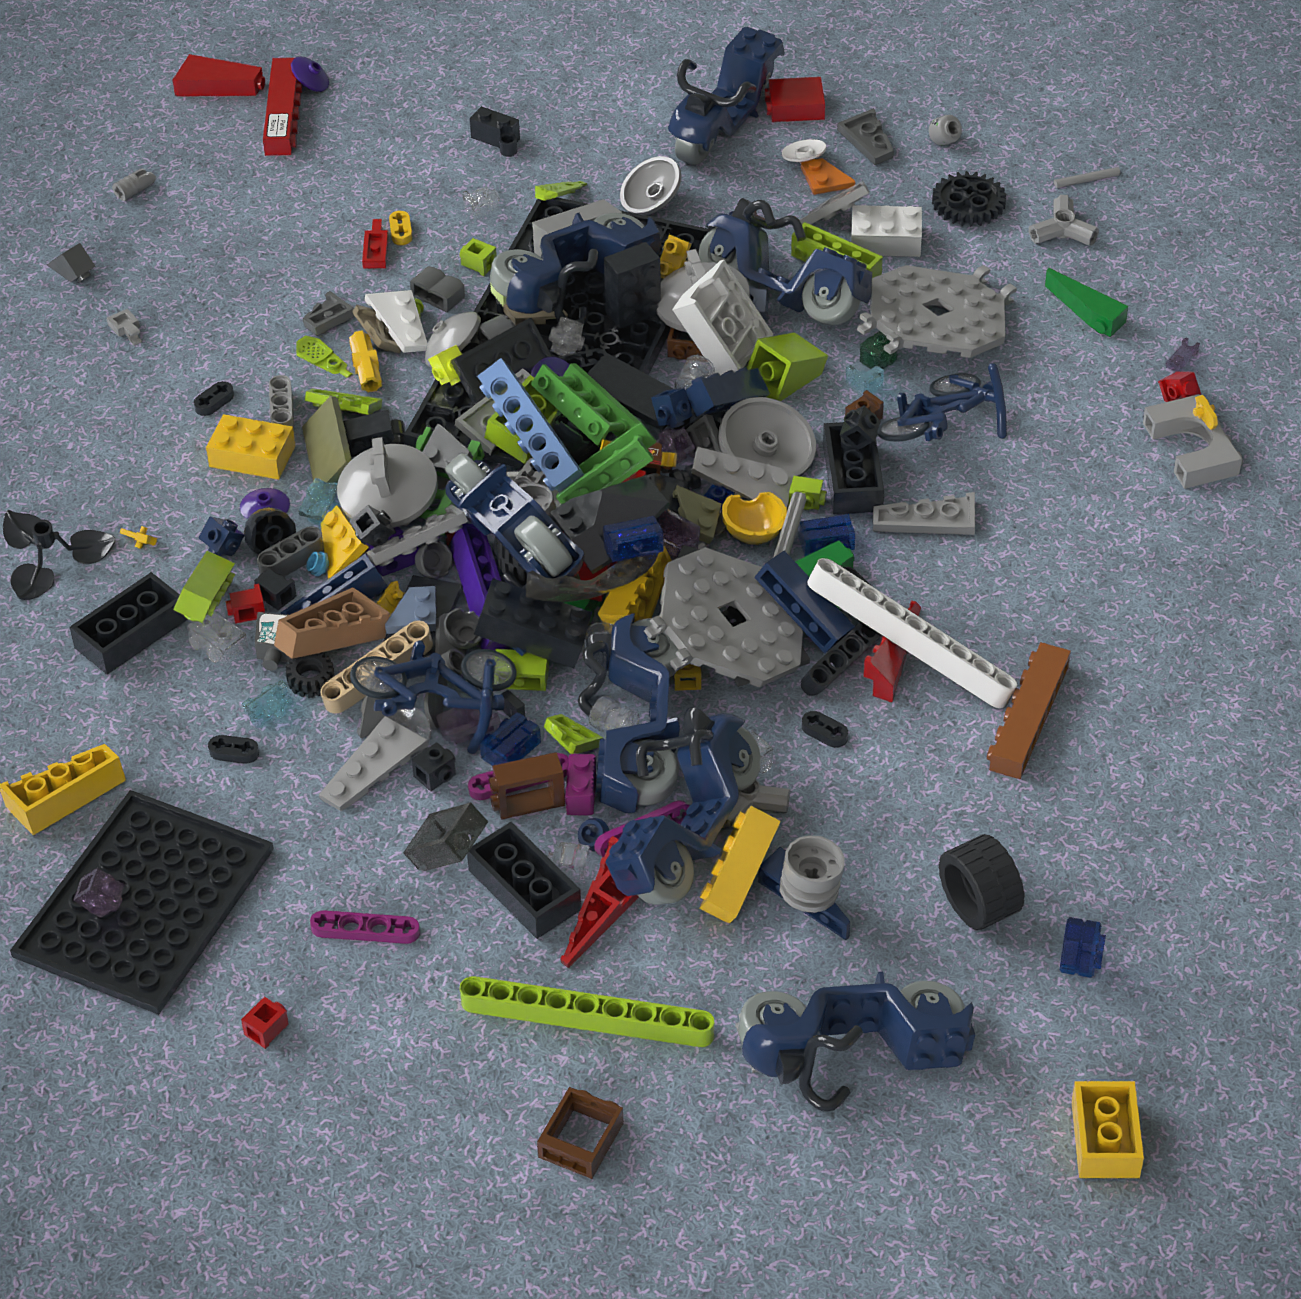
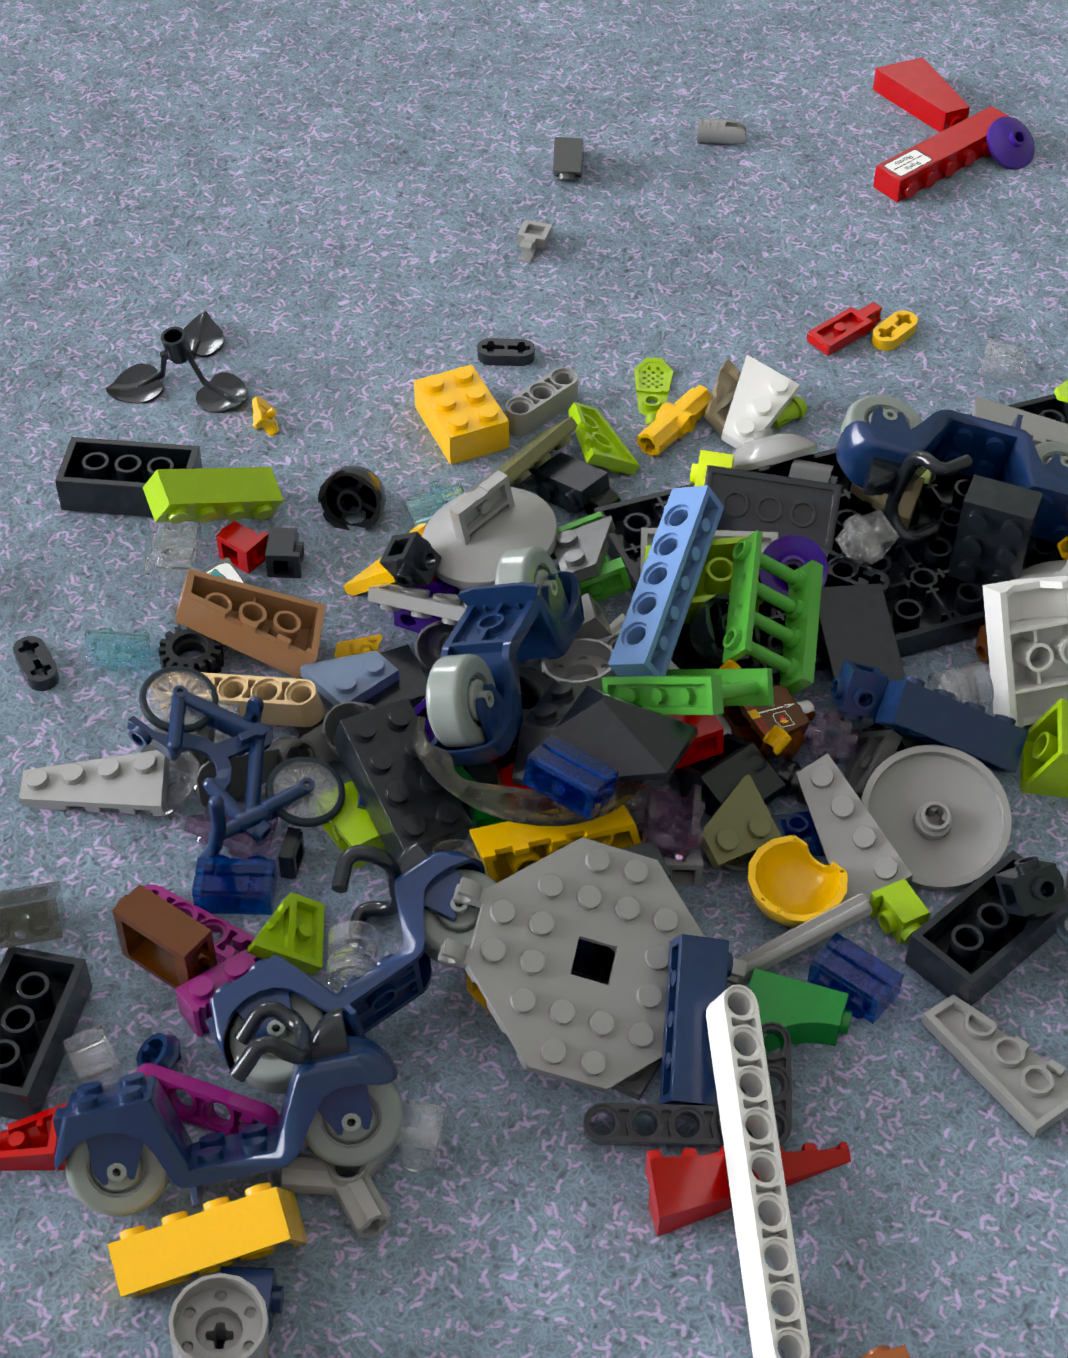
camera: 50 degrees right, 0 degrees up
(221, 536) = (313, 467): dark blue brick -> none
(264, 498) = (405, 476): dark purple dish -> none
(291, 552) = (343, 533): dark grey beam -> none
(317, 563) = (354, 563): dark azure plate -> none
(328, 314) = (706, 354): dark grey wing -> none
(357, 575) = (345, 602): dark blue slope -> none
(434, 766) = (136, 839): black brick -> none
(437, 288) = (833, 401): dark grey brick -> none
(478, 256) = (923, 399): lime brick -> none
(824, 729) = (547, 1189): black beam -> none

